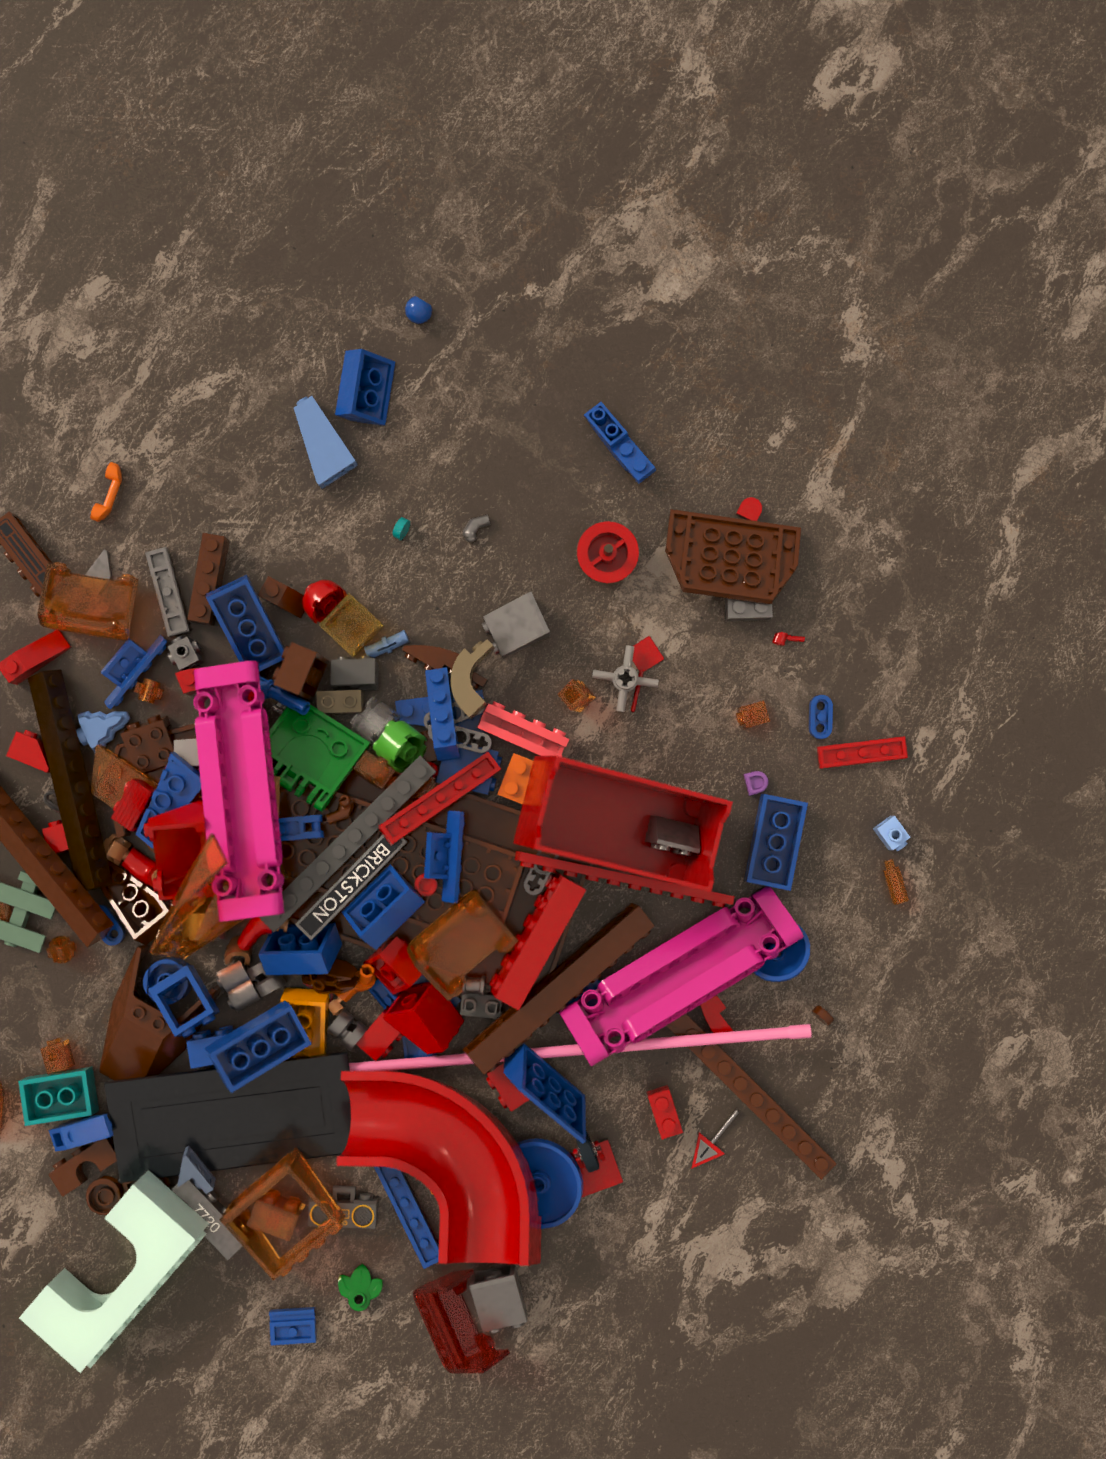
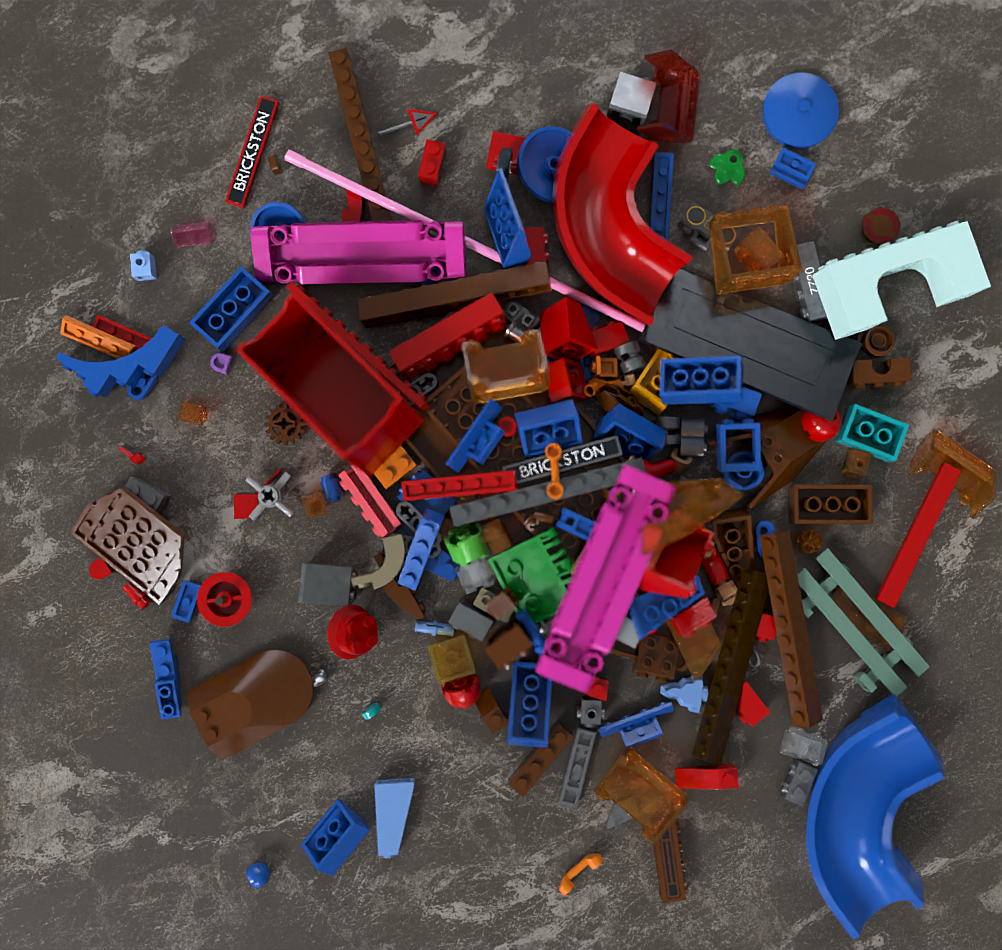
camera: 155 degrees left, 0 degrees up
(61, 998) = (830, 504): none -> reddish brown brick
(81, 1132) = (869, 396): blue slope -> none
(112, 1069) = (820, 428): none -> red cylinder
(148, 690) = (634, 698): clear orange gear -> none
(168, 1319) = (880, 226): none -> reddish brown tile
(194, 1168) = (801, 320): sand blue slope -> none
(319, 1393) = (800, 110): none -> blue dish
(329, 707) = (502, 603): none -> reddish brown brick
(362, 884) = (554, 454): none -> orange bar
(367, 1004) = (604, 367): none -> orange bracket
(462, 593) = (352, 632): none -> red piece
(523, 470) = (251, 701): none -> reddish brown windscreen
(569, 722) = (331, 488): none -> blue brick
(645, 528) = (186, 601): none -> blue plate
(659, 768) = (285, 433): none -> reddish brown gear
(669, 834) = (303, 356): flat silver slope -> none
(698, 505) = (136, 595): none -> red pin
(823, 747) = (151, 359): none -> blue arch
(855, 1015) = (252, 151): none -> tile
(864, 895) = (192, 234): none -> clear pink slope
(892, 732) = (95, 338): none -> orange tile
(895, 883) = (163, 229): clear orange cylinder -> none

